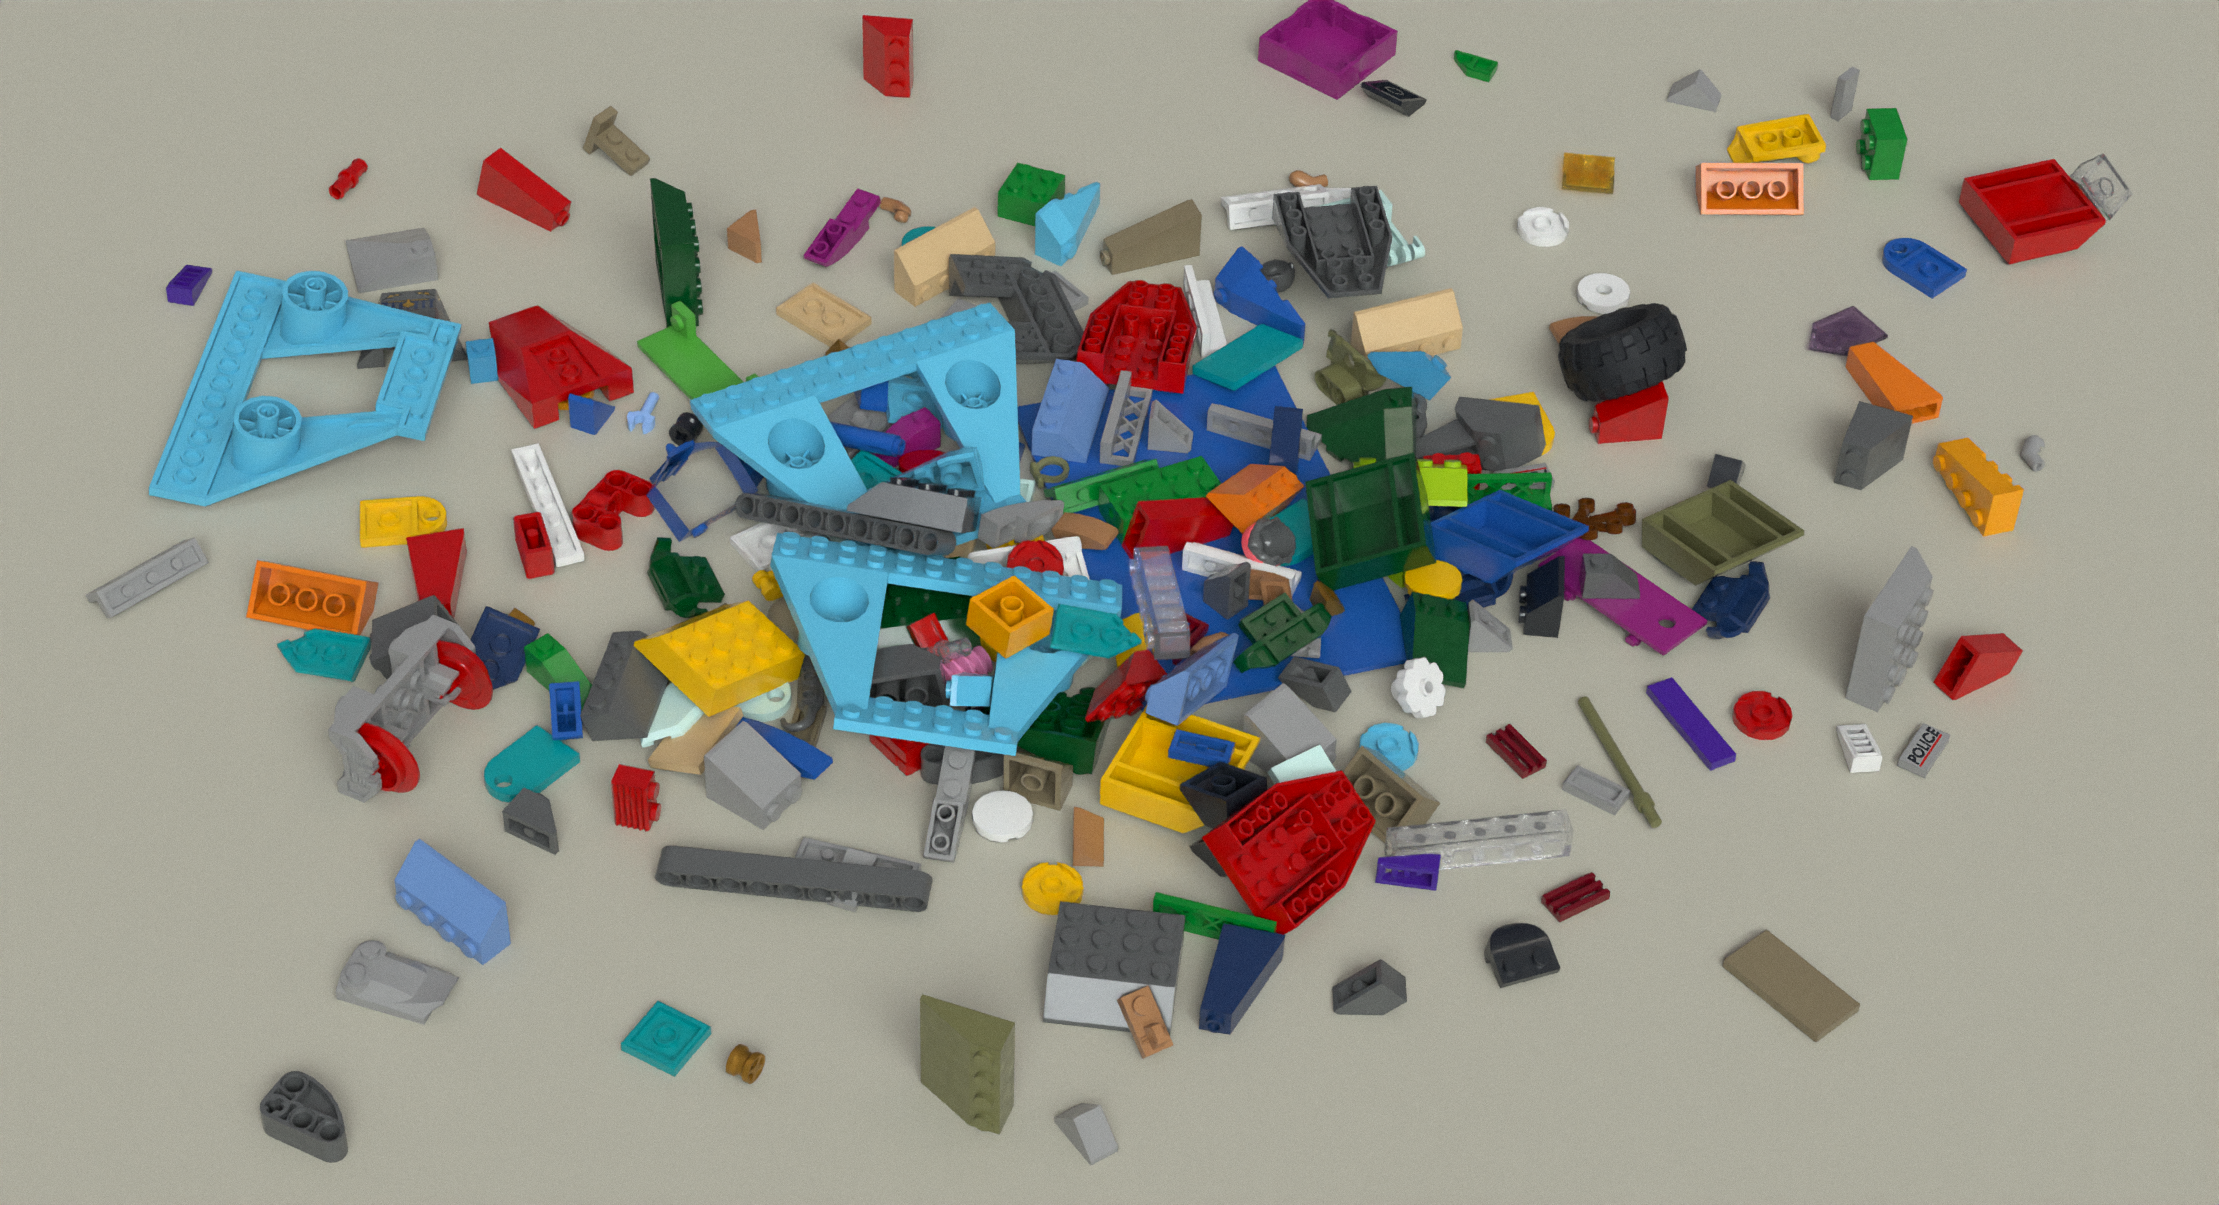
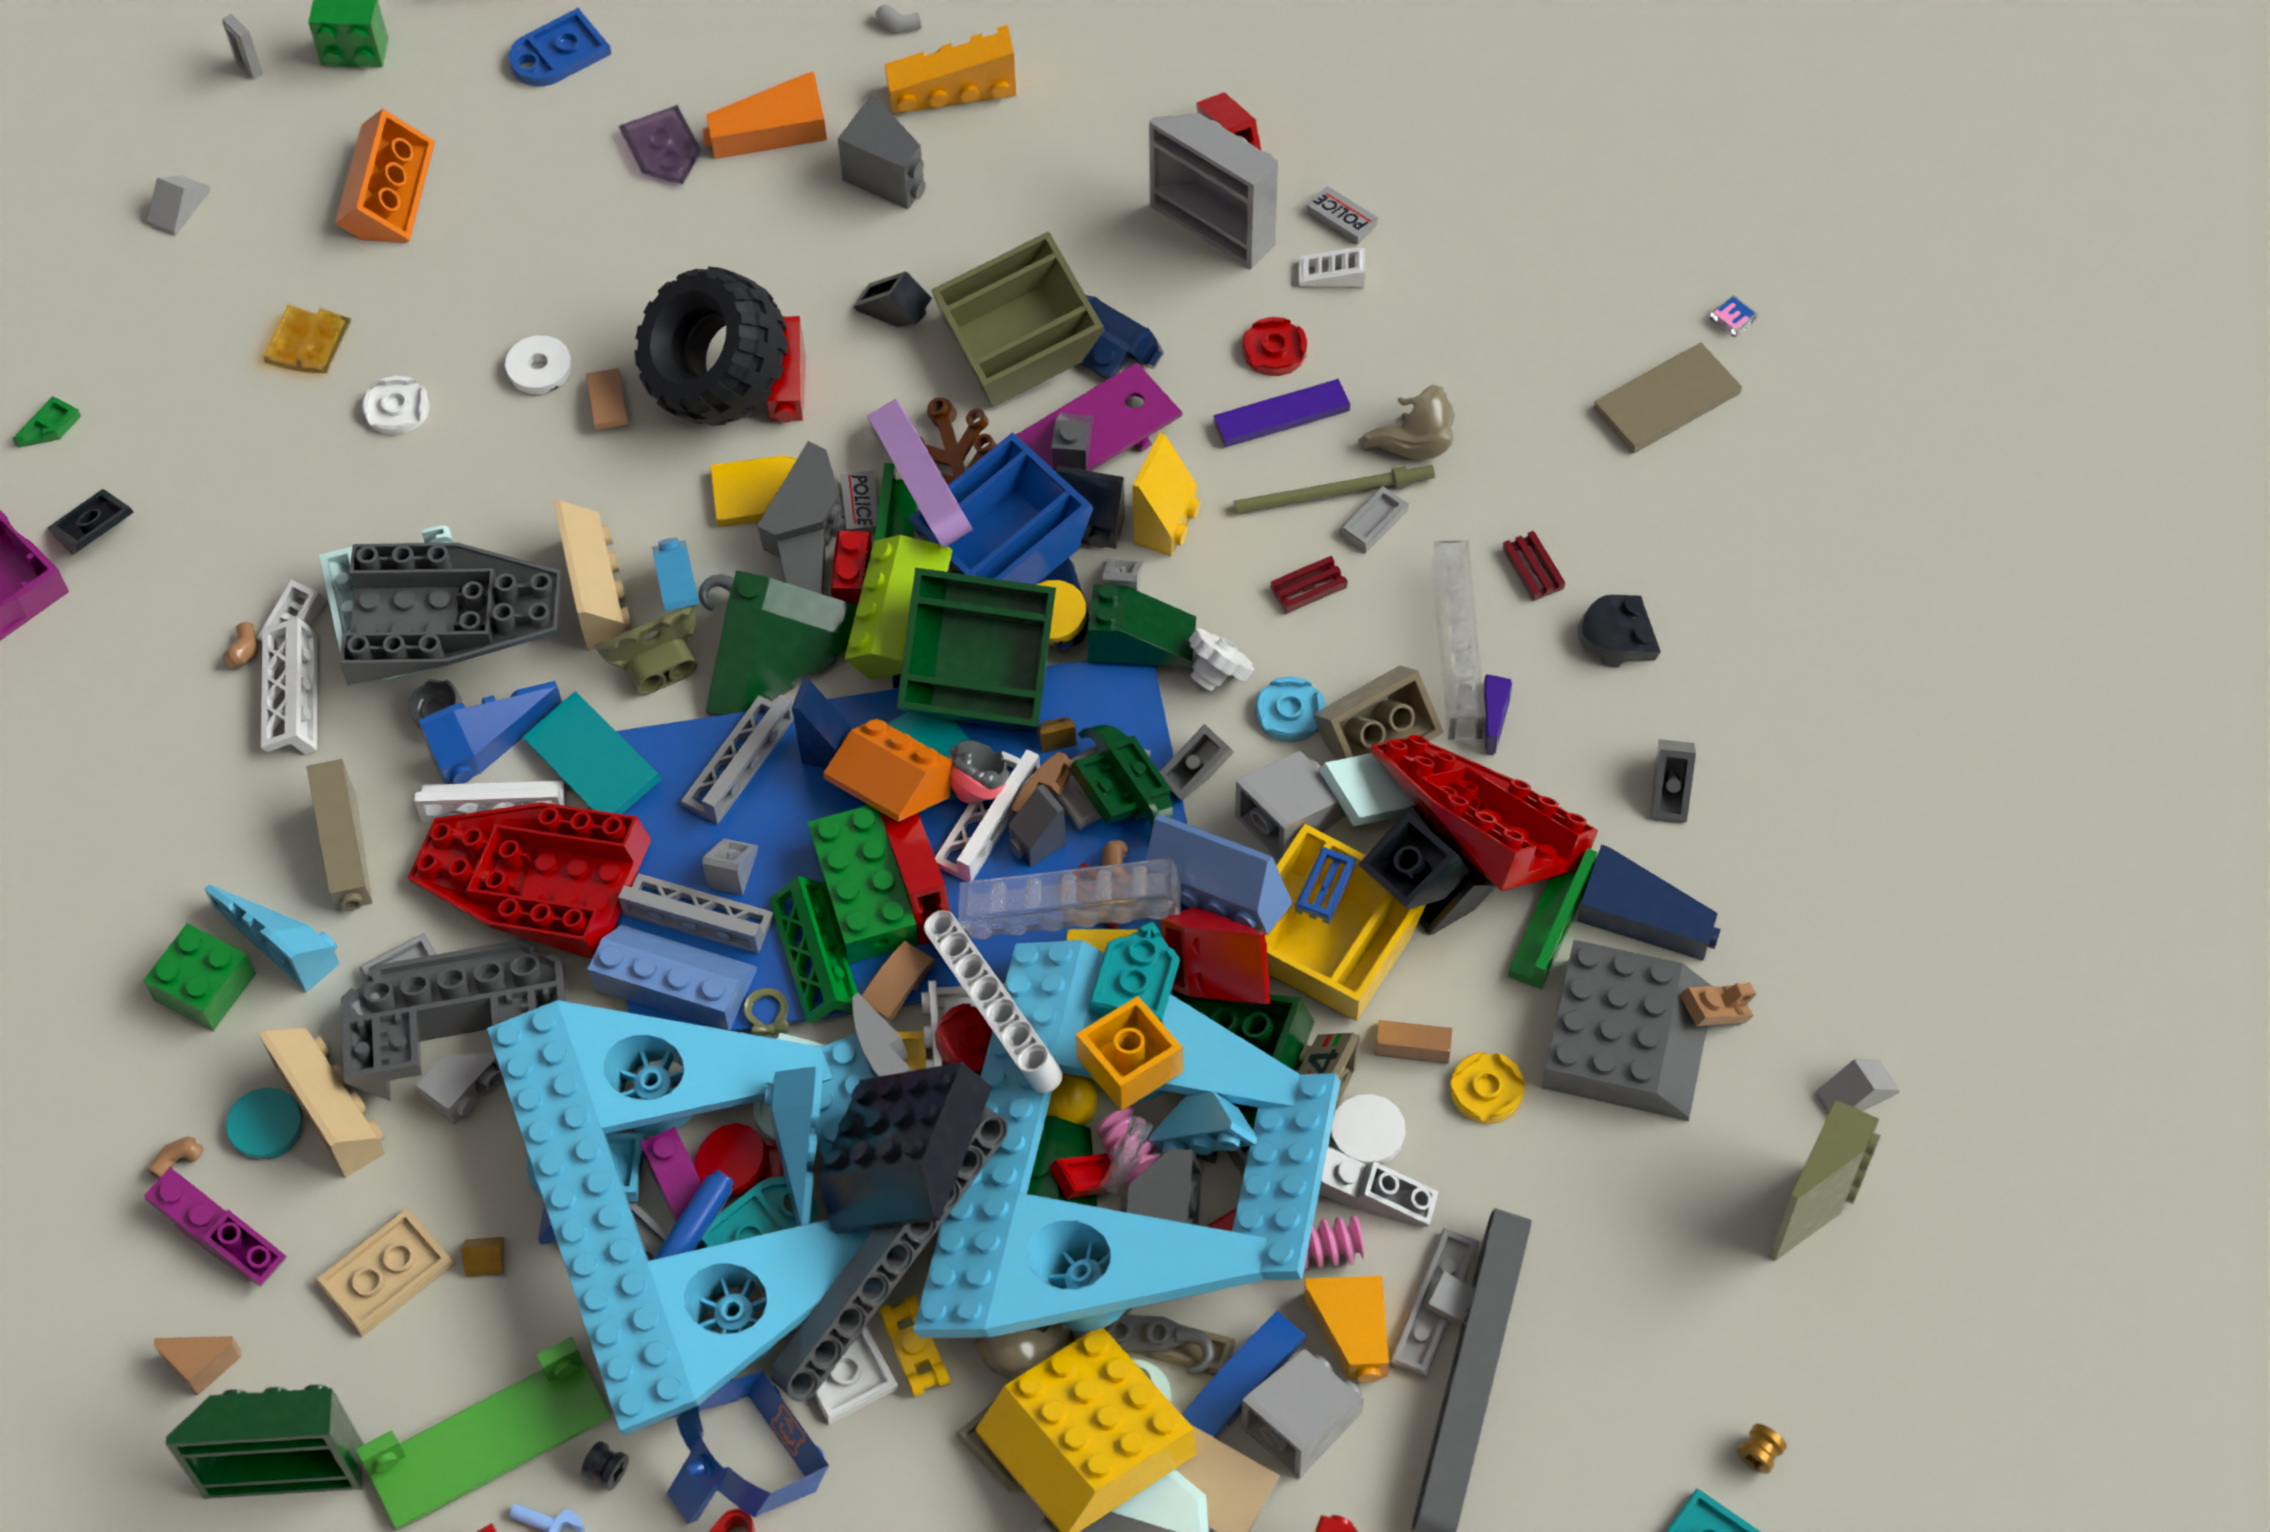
camera: 80 degrees left, 15 degrees up
(682, 580) = (913, 1485): dark green plate -> none
(829, 811) = (1353, 1322): none -> light orange slope
(894, 784) = (1335, 1242): none -> bright pink piece
(1056, 557) = (993, 1002): none -> white beam
(1540, 485) = (920, 473): none -> lavender beam
(1562, 631) = (1163, 499): none -> yellow slope
(1696, 806) = (1424, 430): none -> dark tan piece
(1777, 140) = (305, 136): yellow slope -> none
(1902, 1032) = (1733, 316): none -> tile

